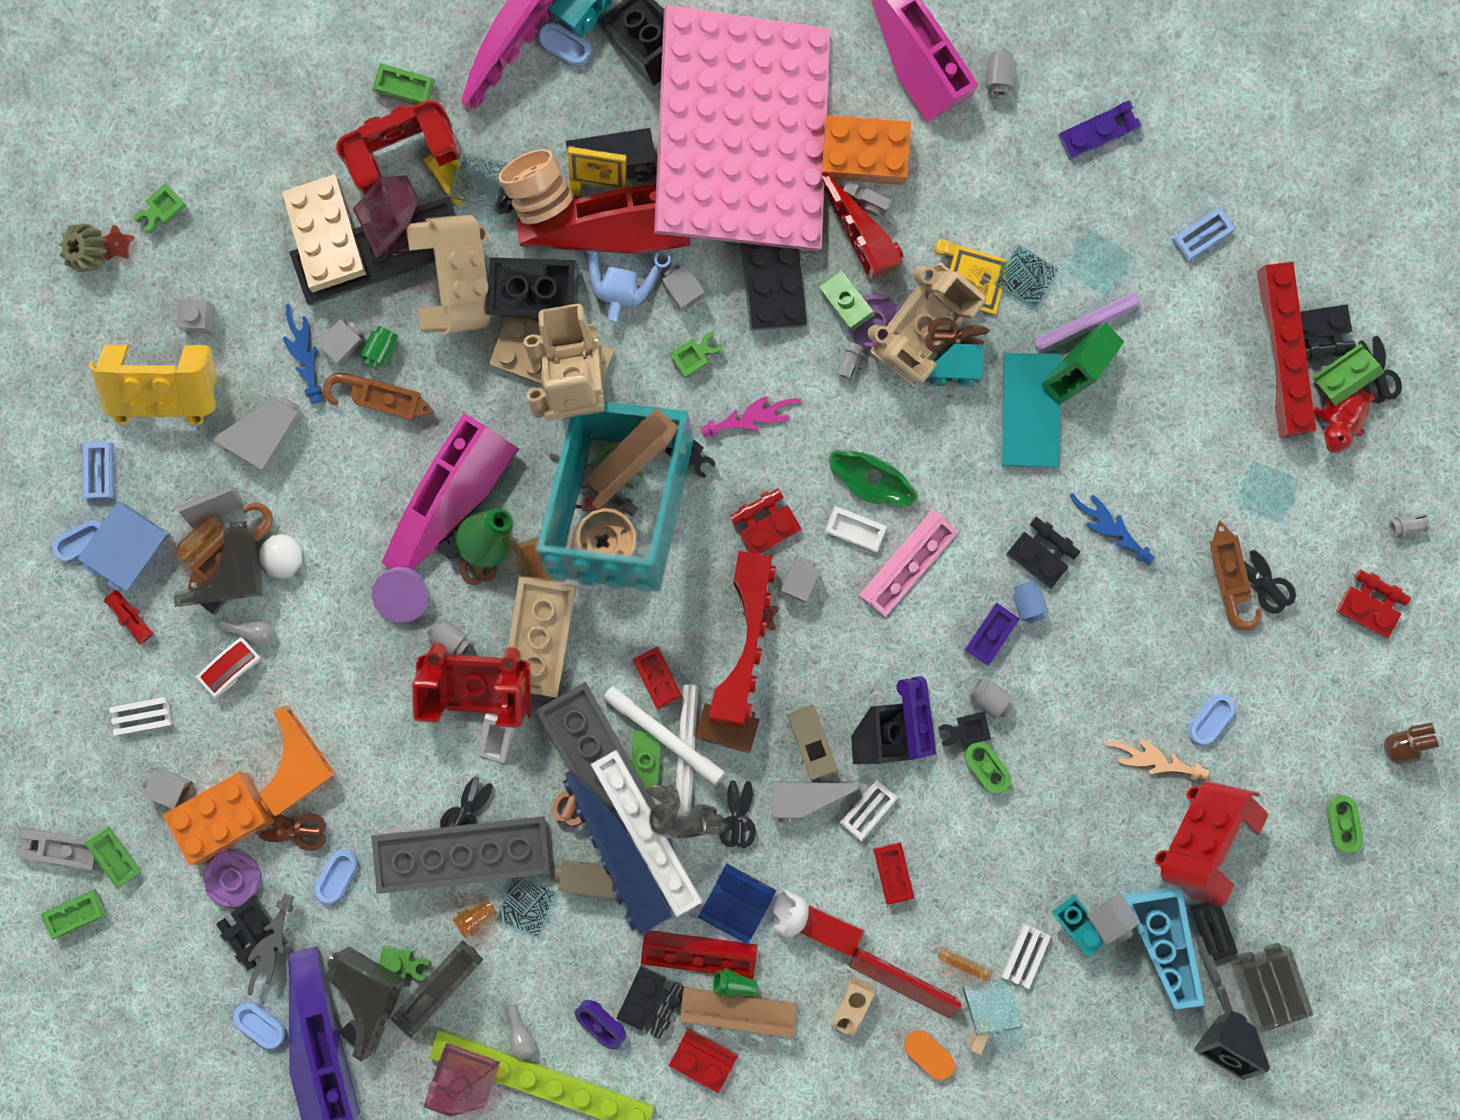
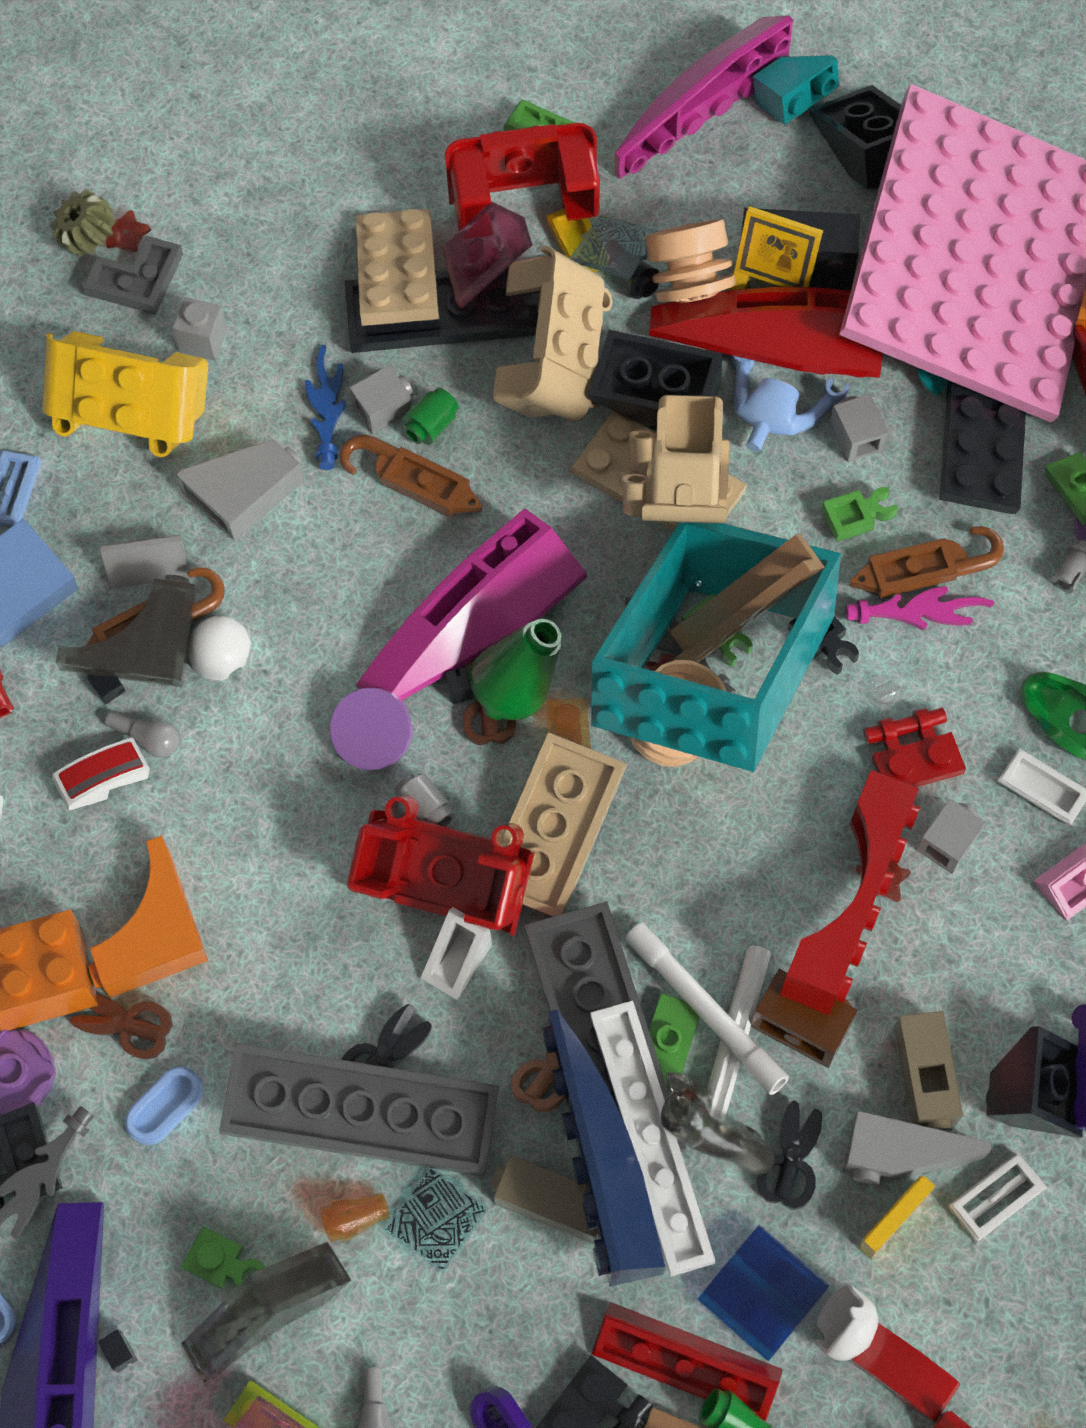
camera: 15 degrees right, 20 degrees down
(142, 284) = (137, 285): none -> dark grey plate
(163, 205) = (198, 200): bright green plate -> none
(199, 539) = (115, 598): clear orange tile -> none
(370, 993) = (164, 1296): clear smoke arch -> none
(564, 44) = (761, 128): light blue tile -> none
(657, 678) = (713, 927): red plate -> none
(750, 383) = (925, 565): none -> dark orange plate
(808, 839) = (896, 1216): none -> yellow tile
(893, 873) = (1020, 1303): red plate -> none

